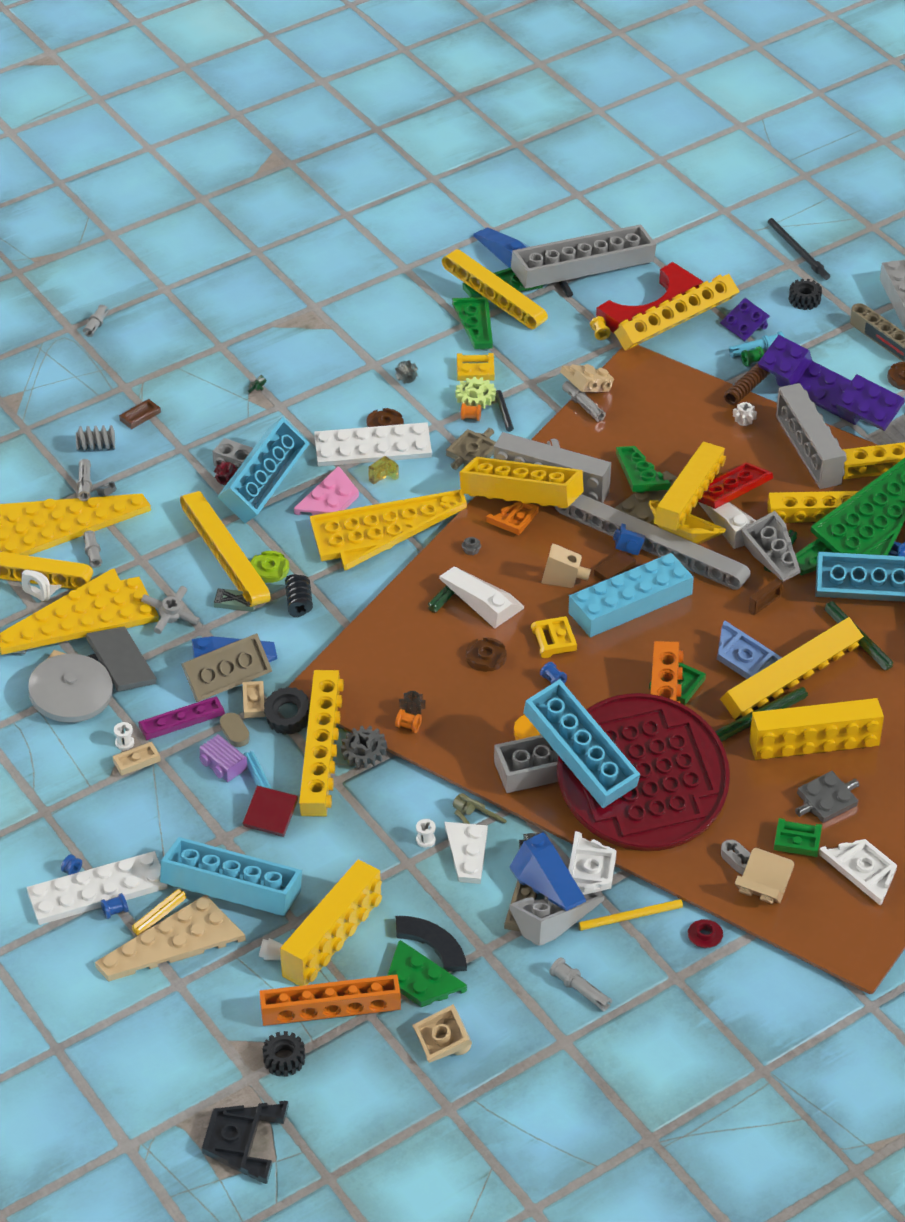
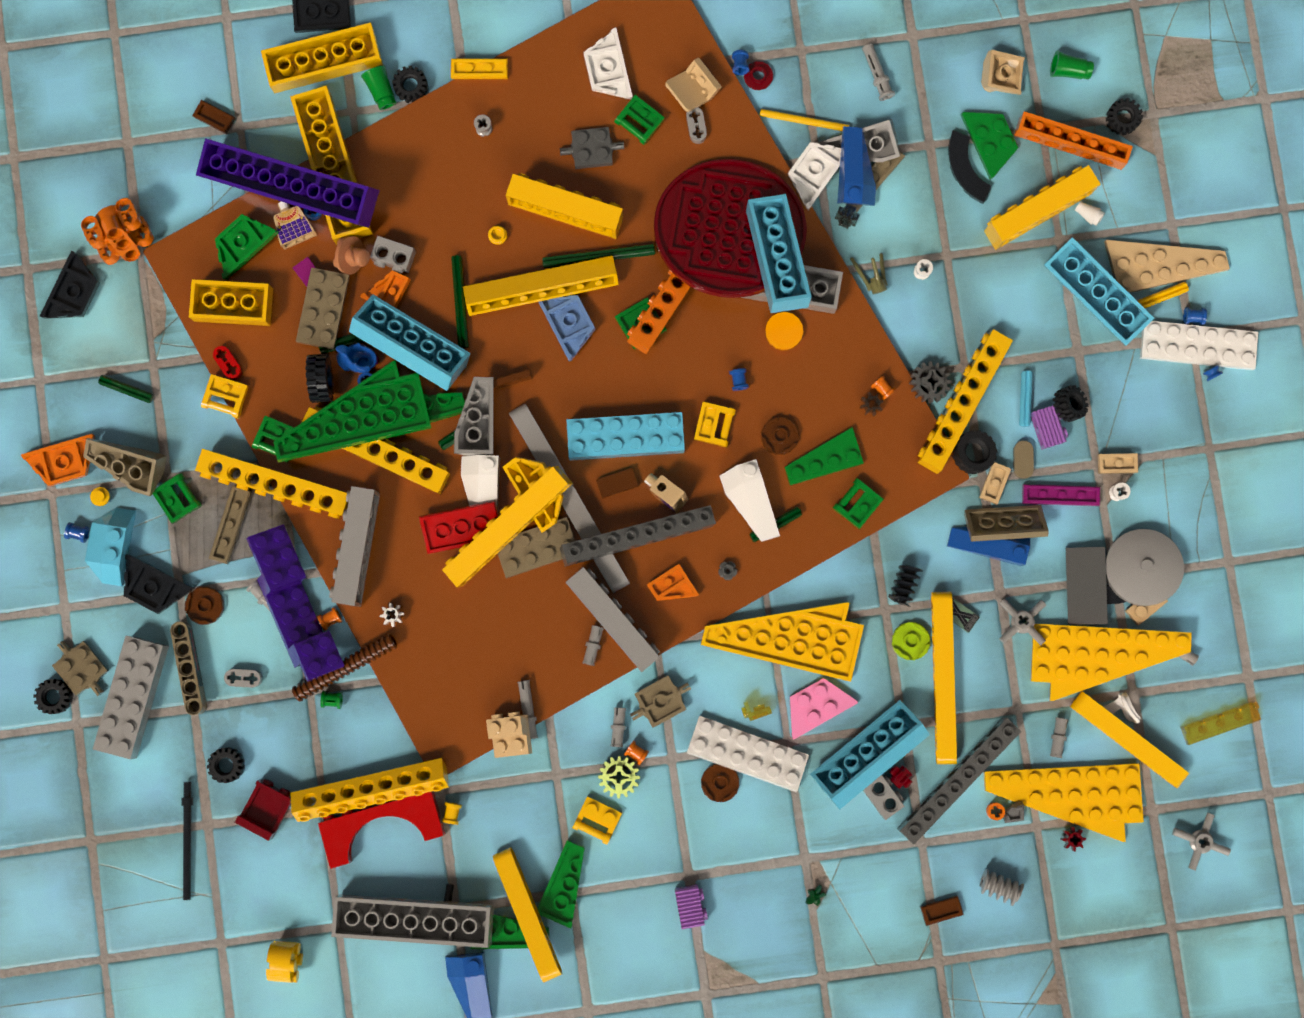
camera: 155 degrees left, 40 degrees up
(44, 489) = (1076, 843): none -> dark red gear
(84, 483) = (1032, 833): light grey pin -> none
(125, 486) = (992, 816): none -> orange bush
(170, 488) = (959, 780): none -> dark grey brick
(202, 773) = (1070, 395): none -> black tyre
(233, 1133) = (1189, 66): black wing -> none
(270, 811) = (1034, 352): dark red tile -> none
(361, 342) = (690, 907): none -> medium lavender brick
(369, 1072) = (1070, 66): none -> green plant
(373, 627) = (862, 508): none -> green plate
(406, 371) = (669, 838): clear smoke gear -> none
(425, 656) = (828, 458): none -> green wing
(468, 849) = (896, 241): white wing -> none
(497, 421) = (618, 727): none -> light grey pin
(504, 411) = (602, 744): black bar -> none
(521, 482) = (653, 608): yellow brick -> none
(569, 523) = (637, 535): none -> dark grey brick
(628, 540) = (592, 495): blue bracket -> none
(639, 472) = (534, 578): green wing -> none
(666, 206) = (284, 961): none -> yellow brick
(731, 930) = (740, 62): none -> blue bush
(745, 319) = (307, 756): dark purple hinge -> none
(752, 280) = (265, 809): none -> dark red panel
(765, 342) = (308, 712): medium azure pin -> none
(836, 346) = (243, 673): none -> light grey beam
(863, 692) = (497, 235): none -> yellow plate

